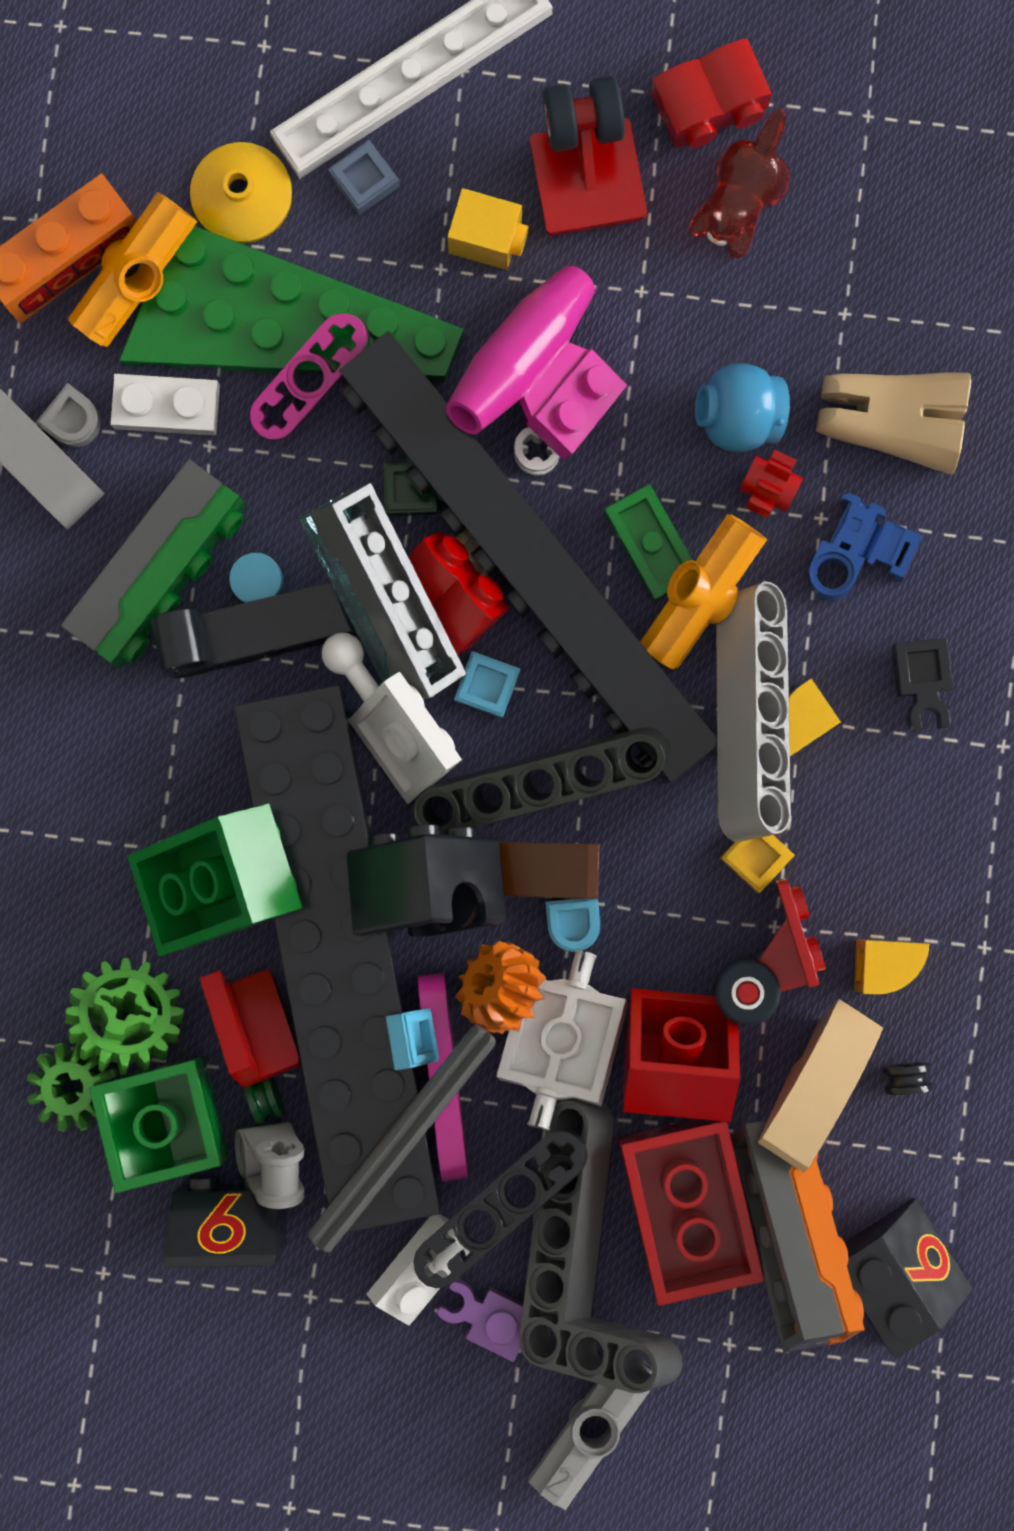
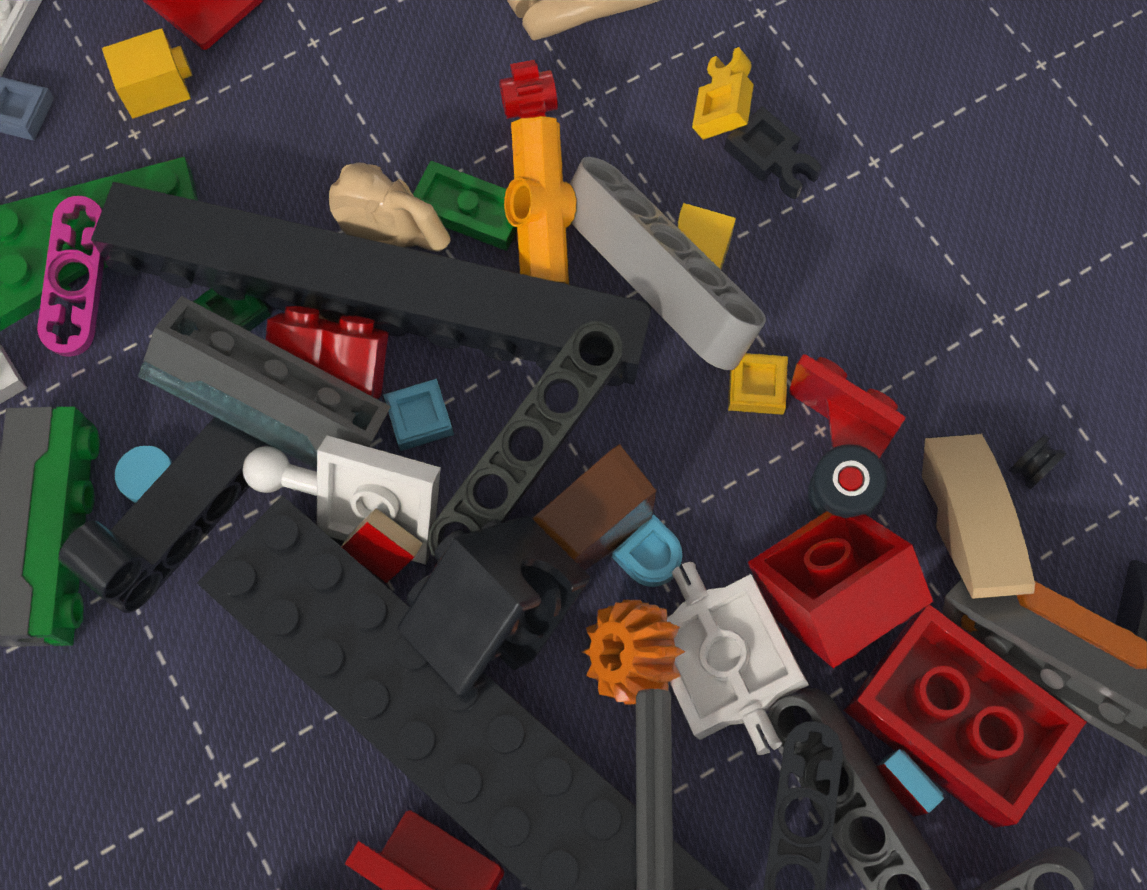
camera: 35 degrees left, 15 degrees down
(214, 879) = (288, 751): green brick -> none
(384, 771) = (381, 545): none -> red tile
(412, 1038) = (590, 755): medium azure tile -> none
(449, 1123) = (619, 753): dark pink beam -> none
(534, 363) = (255, 130): dark pink plate -> none
(536, 465) = (308, 194): white bush -> none
(576, 508) = (384, 210): none -> tan piece
(617, 1220) = (909, 783): none -> medium azure tile
(743, 407) = (460, 53): dark azure piece -> none
(866, 541) = (640, 86): blue piece -> none
(887, 965) = (937, 382): yellow brick -> none
(924, 608) = (726, 100): none -> yellow plate

